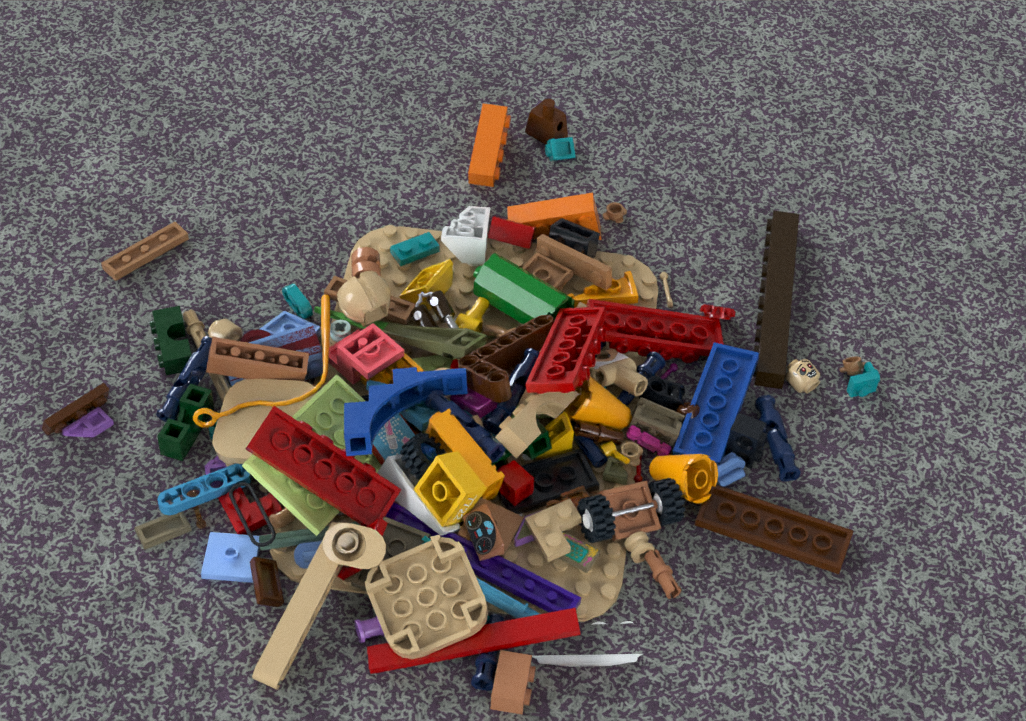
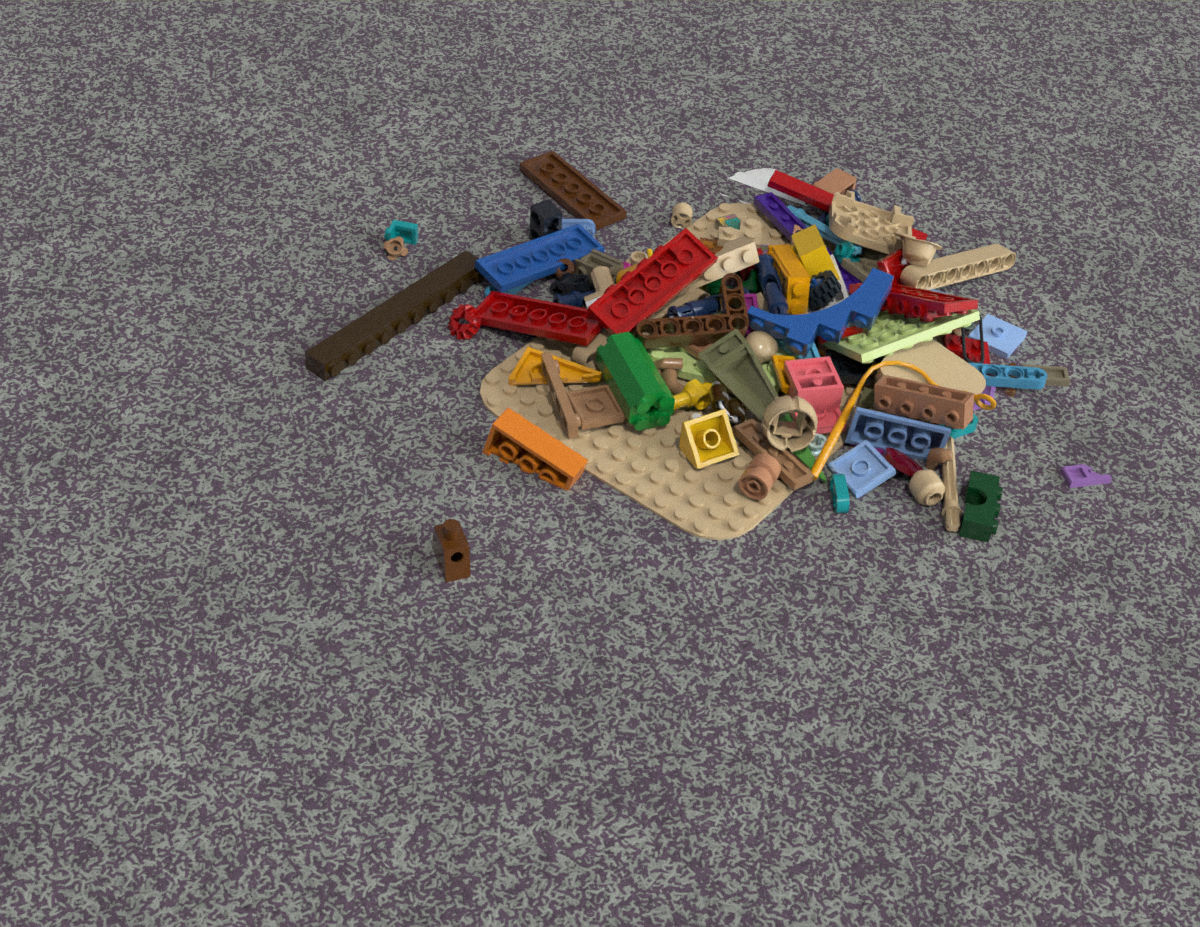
camera: 150 degrees left, 5 degrees down
(76, 409) = (1094, 483): reddish brown plate -> none
(145, 251) = (970, 611): medium nougat plate -> none
(179, 436) = (987, 433): dark green arch -> none
(197, 365) = (980, 457): dark blue piece -> none
(266, 582) = (984, 299): reddish brown tile -> none
(414, 249) = (693, 488): teal plate -> none
(468, 235) = (634, 463): white wedge -> none
(489, 145) = (531, 556): orange wedge -> none
(511, 232) = (588, 453): red tile -> none
(560, 149) = (471, 524): teal bracket -> none
(575, 237) = (543, 410): black brick -> none
(615, 212) = (463, 447): medium nougat plate -> none
(630, 510) = (645, 221): plate -> none
(662, 573) = (678, 195): nougat pin -> none
(664, 276) = (473, 379): tan hinge -> none
(691, 472) = (615, 224): light orange cone -> none
(777, 439) = (510, 232): dark blue piece -> none
(802, 375) = (443, 252): tan head -> none

